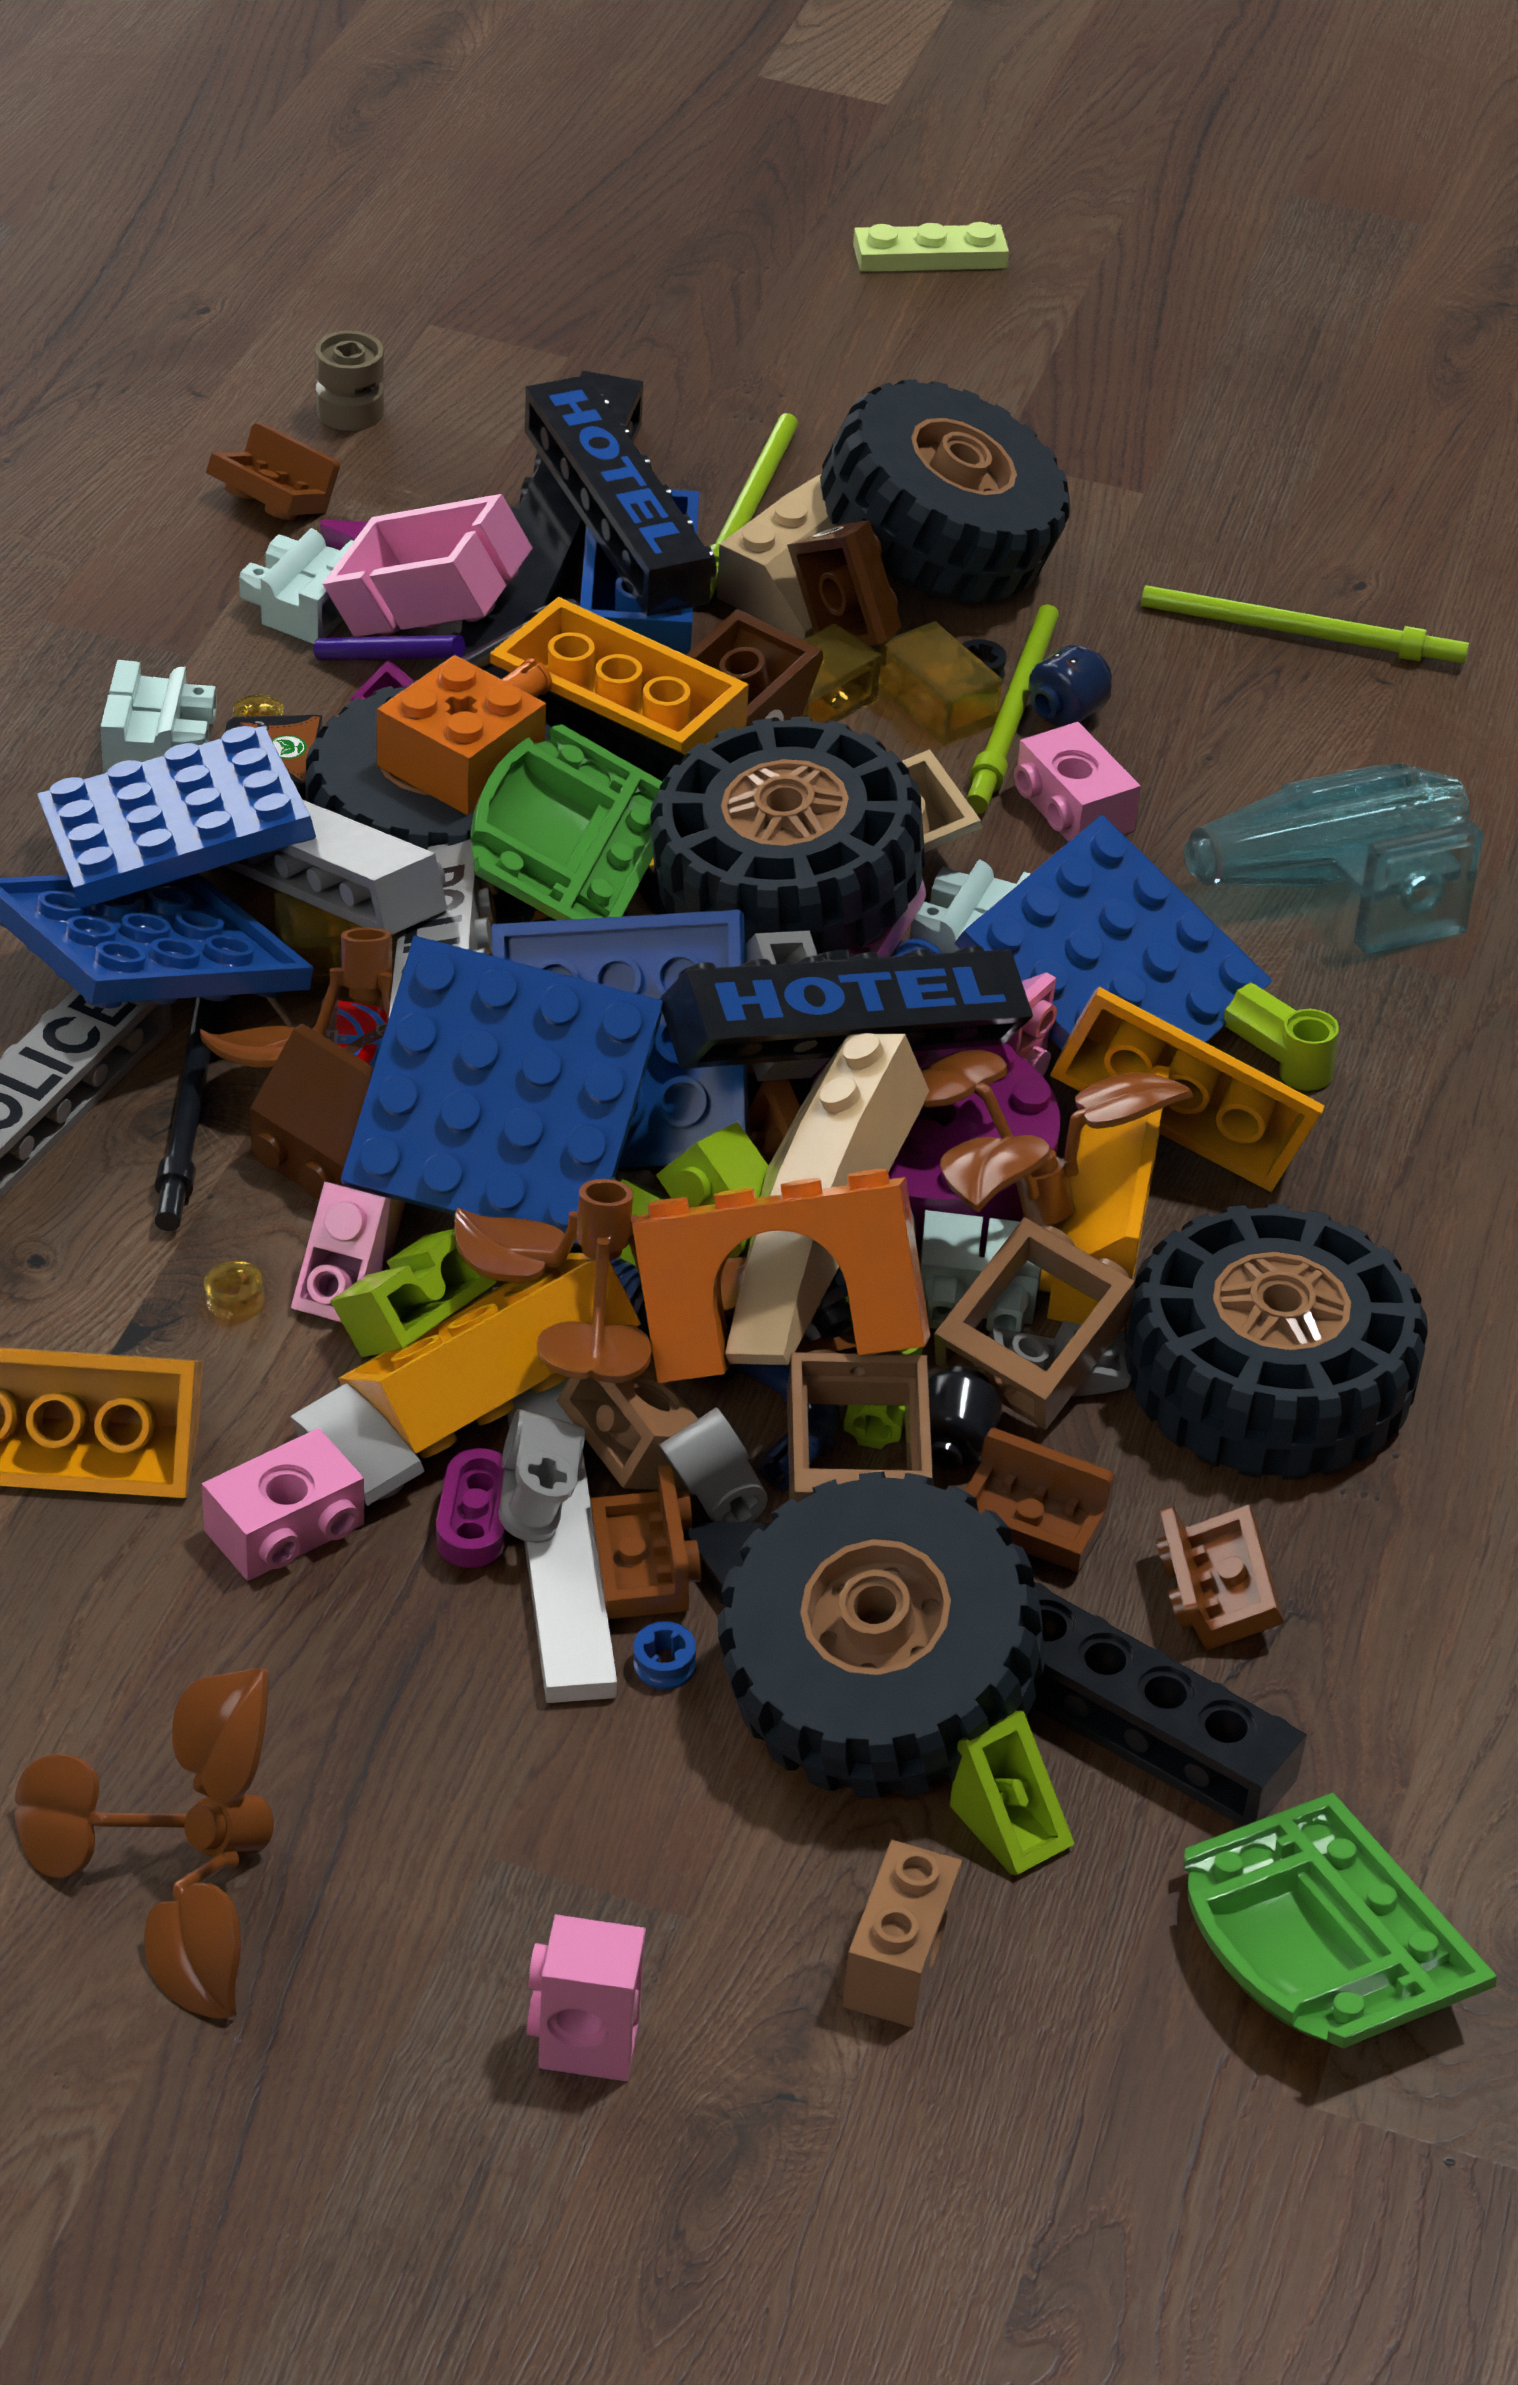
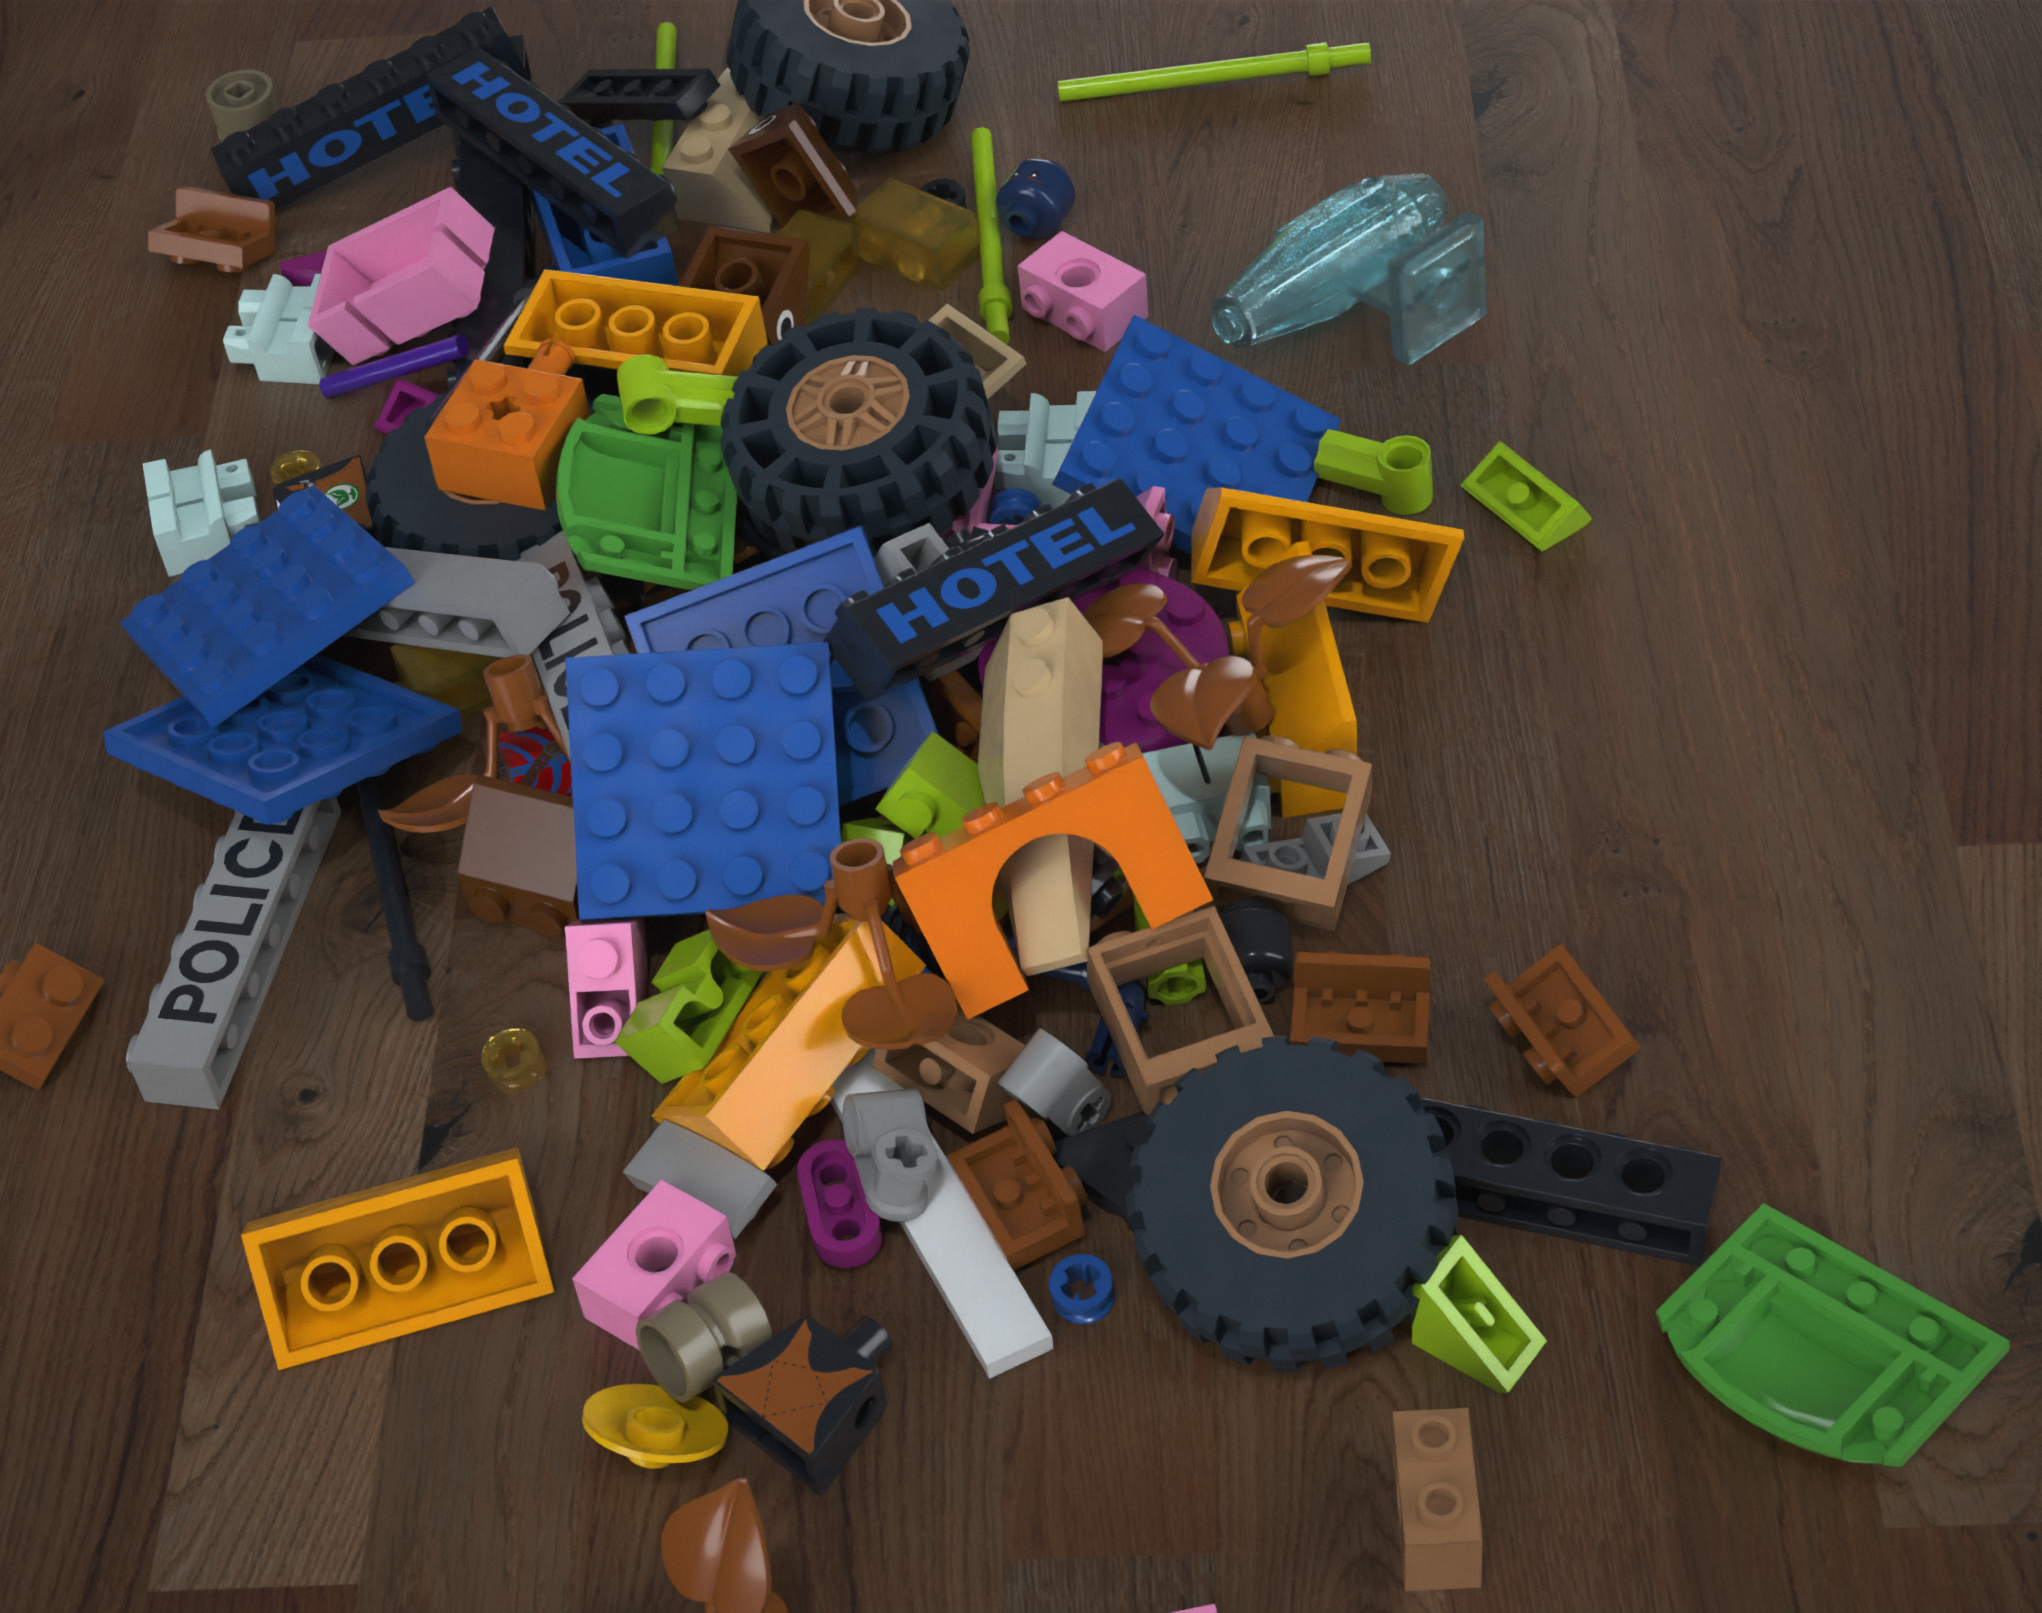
camera: 10 degrees left, 5 degrees up
(222, 1632) = (653, 1426): none -> yellow dish
(289, 1573) = (699, 1340): none -> dark tan wheel
(372, 1657) = (808, 1396): none -> black torso
(449, 409) = (354, 119): none -> black brick
(611, 743) = (658, 397): none -> lime piece
(729, 471) = (641, 94): none -> black plate
(1275, 1341) = (1510, 772): black wheel -> none
(1418, 1110) = (1525, 498): none -> lime slope

